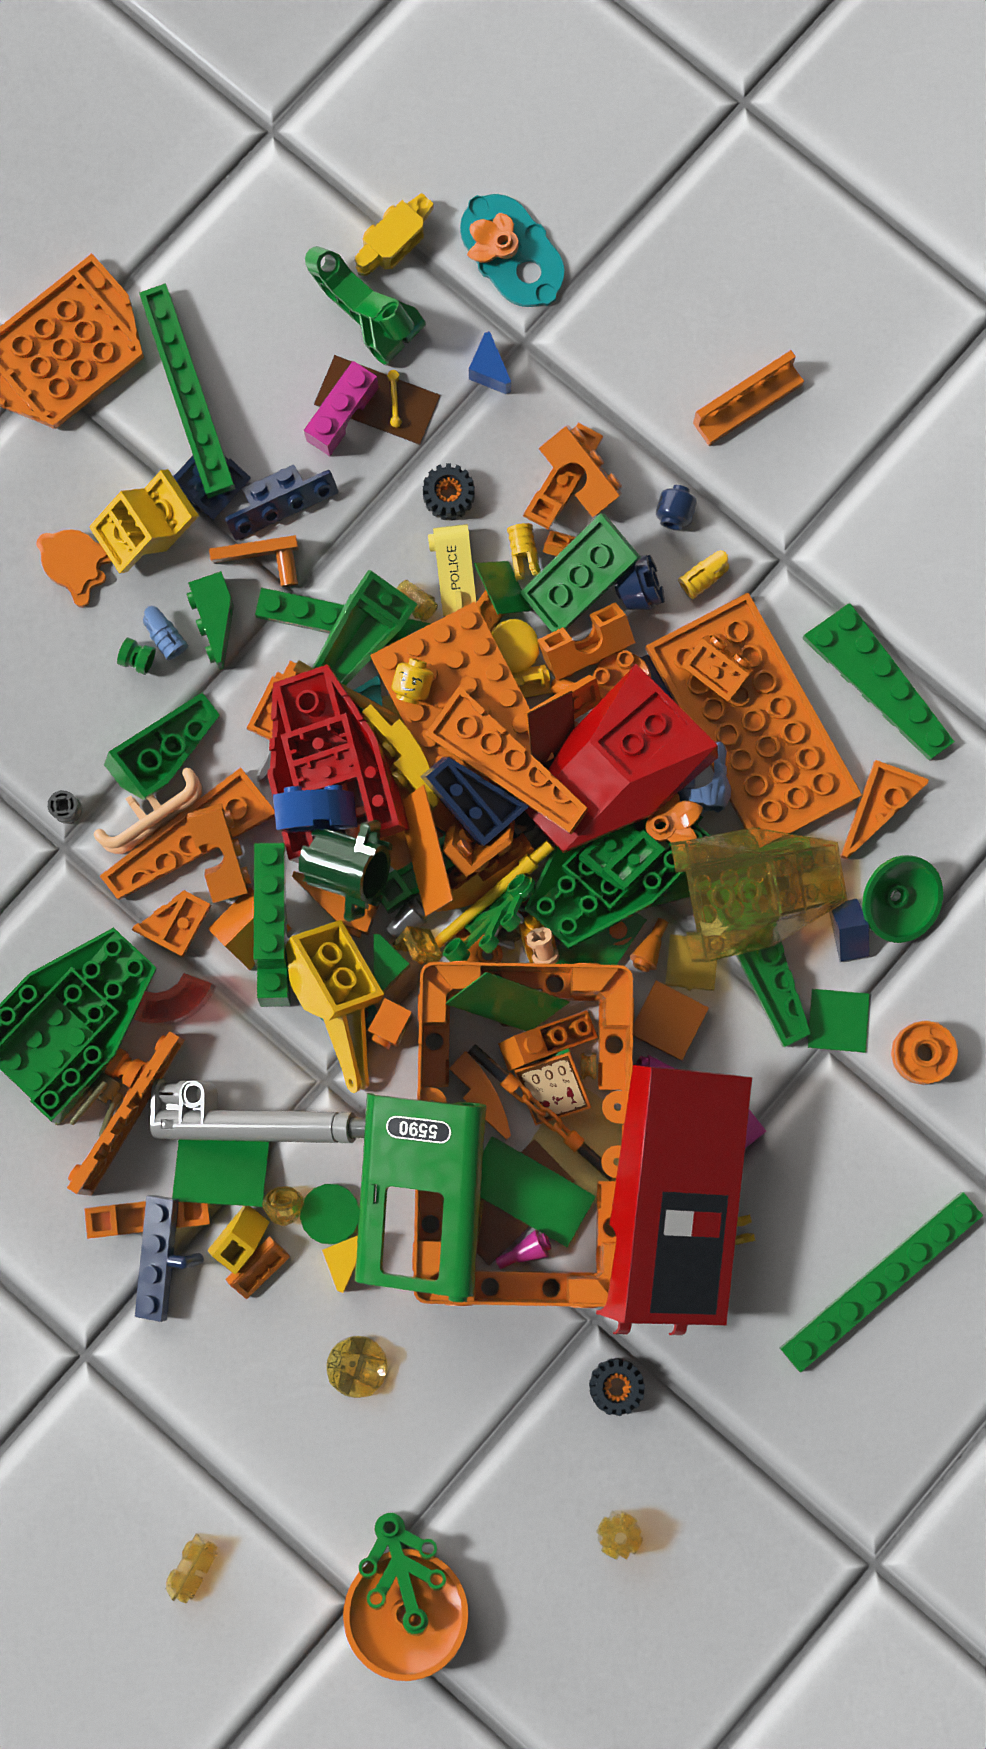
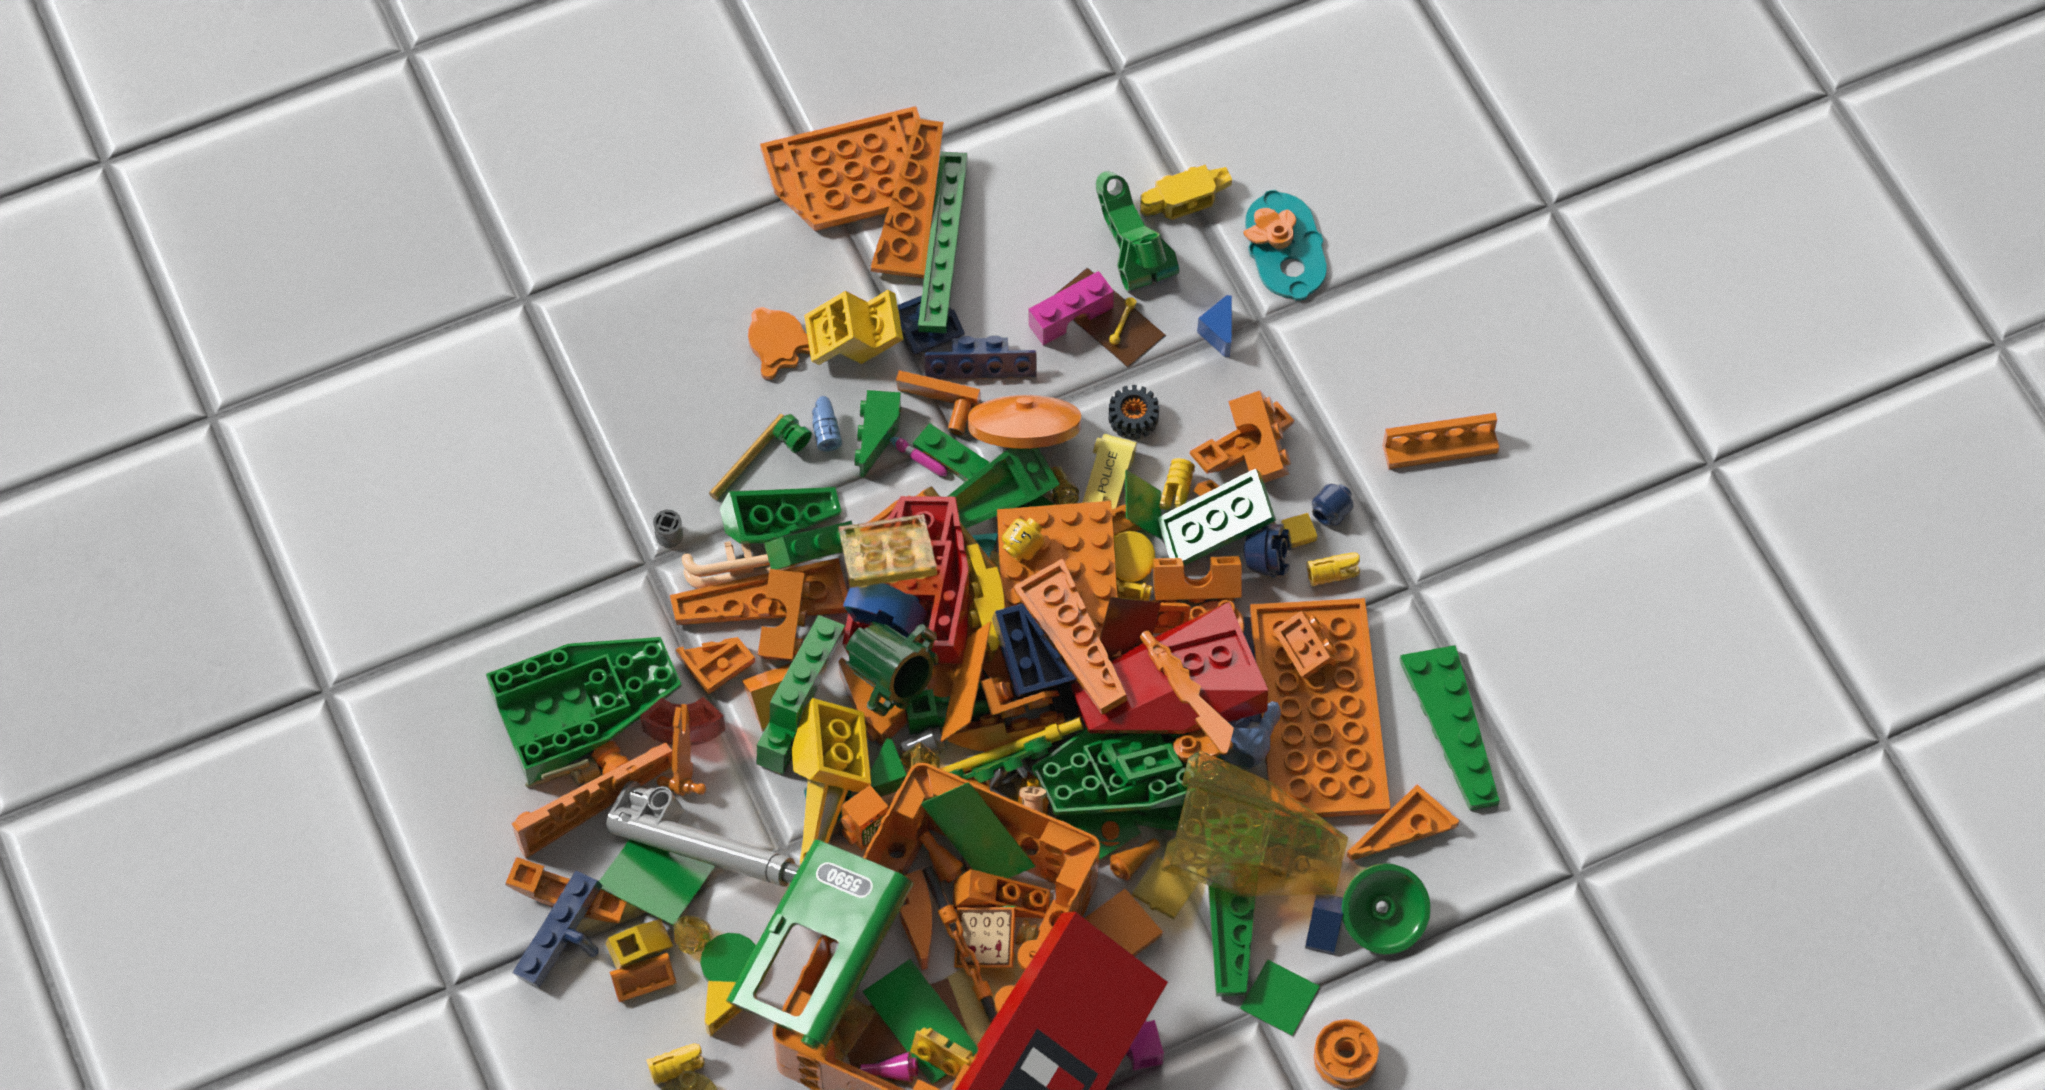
camera: 25 degrees right, 20 degrees down
(104, 699) = (744, 460): none -> pearl gold bar
(144, 387) = (907, 225): none -> orange wing
(192, 1041) = (681, 758): none -> orange piece
(222, 763) = (805, 546): none -> green arch
(246, 621) = (915, 454): none -> dark pink piece
(292, 755) = (887, 551): none -> clear yellow plate
(326, 1338) = (676, 1061): none -> yellow hinge
(355, 553) = (1024, 421): none -> orange dish
(484, 1032) = (945, 864): none -> orange cone
(579, 1220) = (931, 1048): none -> yellow hinge
(643, 779) = (1188, 691): none -> orange sword
(656, 545) = (1300, 529): none -> yellow tile

